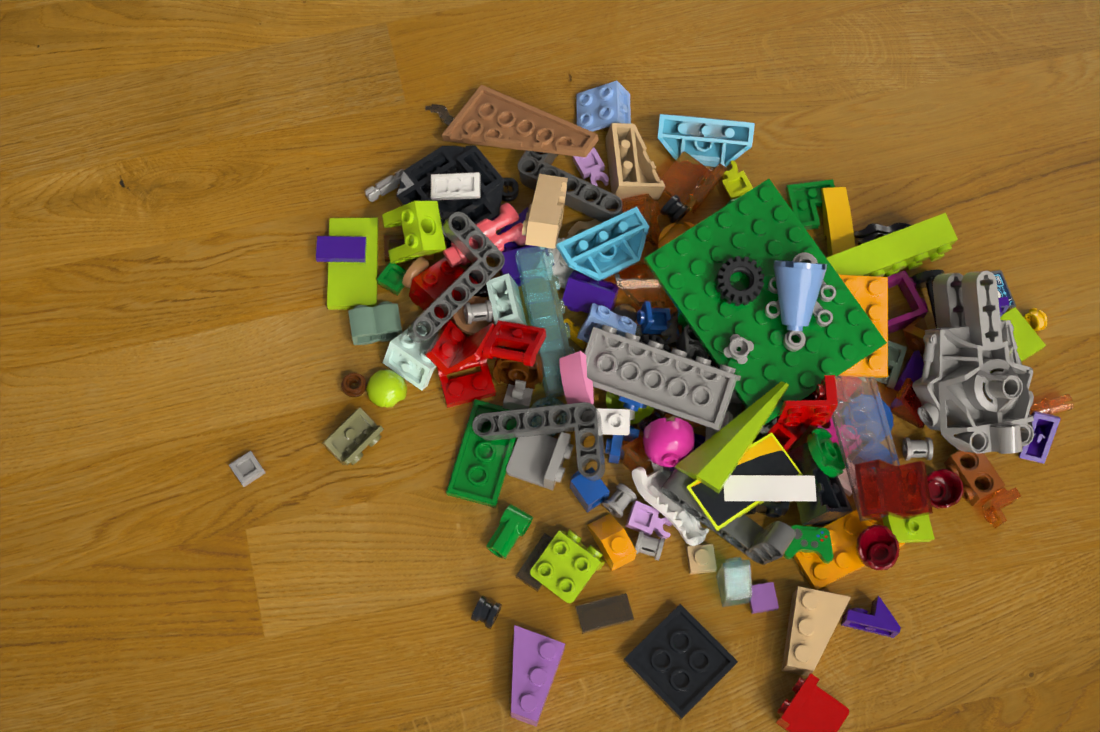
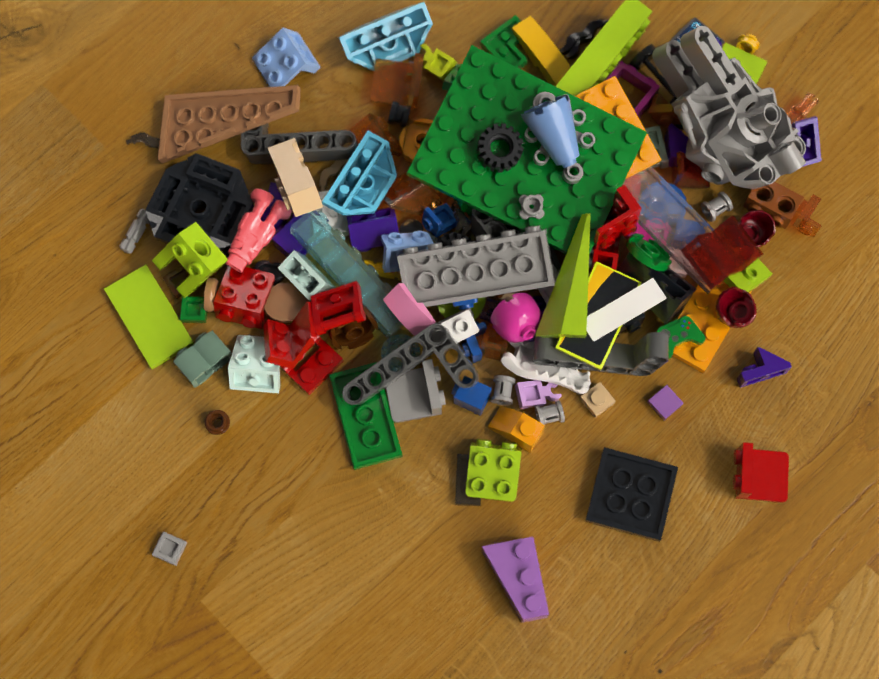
camera: 25 degrees left, 5 degrees up
(341, 249) = (132, 310): dark purple tile -> none
(353, 437) = (246, 468): olive bracket -> none
(386, 388) = (247, 409): lime hair -> none
(455, 186) = (201, 199): white plate -> none
(462, 283) = (260, 281): dark grey beam -> none
(478, 312) = (287, 298): light grey bush -> none
(486, 612) = (450, 548): black wheel -> none
(512, 526) = (427, 464): green piece -> none
(513, 195) = (247, 168): black bush -> none
(517, 396) = (364, 352): light grey tile -> none
(591, 167) = (306, 117): lavender plate -> none
(604, 613) = (546, 491): clear smoke tile -> none
(629, 164) = (337, 96): tan wedge -> none
(735, 582) = (638, 403): clear light blue slope -> none
(810, 627) = (719, 405): tan wedge -> none

